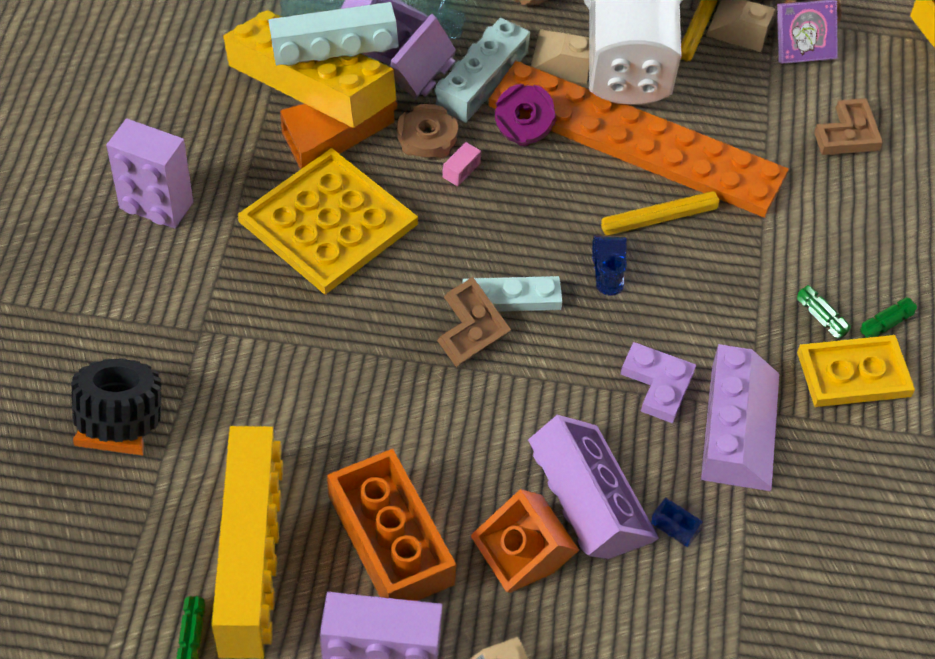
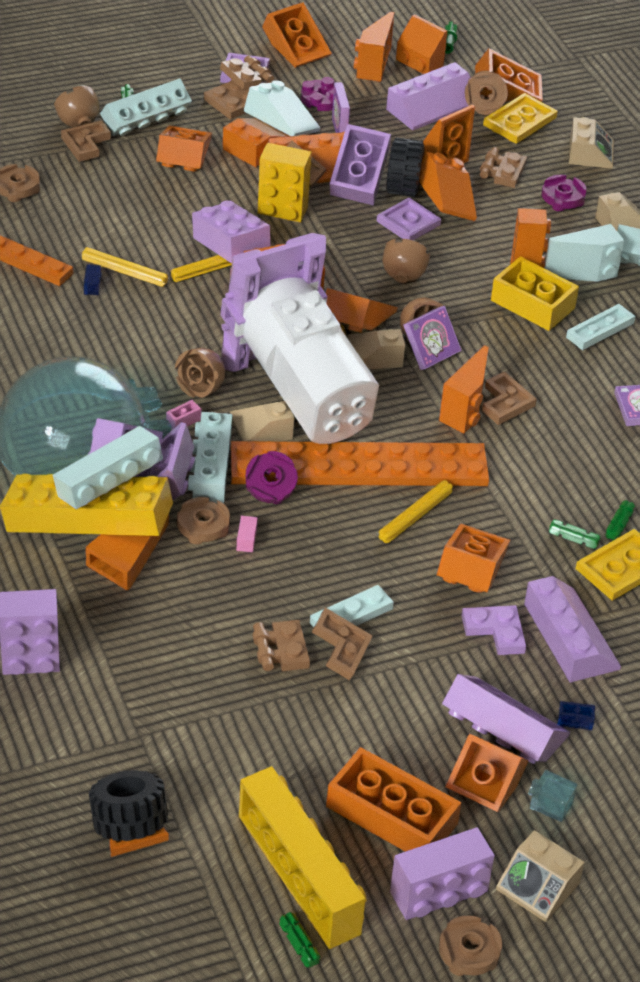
camera: 30 degrees left, 10 degrees down
(328, 220) = (178, 615): yellow plate -> none
(420, 302) = (289, 643): none -> medium nougat plate
(486, 15) = (186, 413): none -> bright pink piece
(580, 604) = (552, 795): none -> clear light blue brick
(610, 263) = (406, 560): clear blue piece -> none
(684, 289) = (472, 558): none -> orange slope
(802, 103) = (464, 393): none -> orange slope

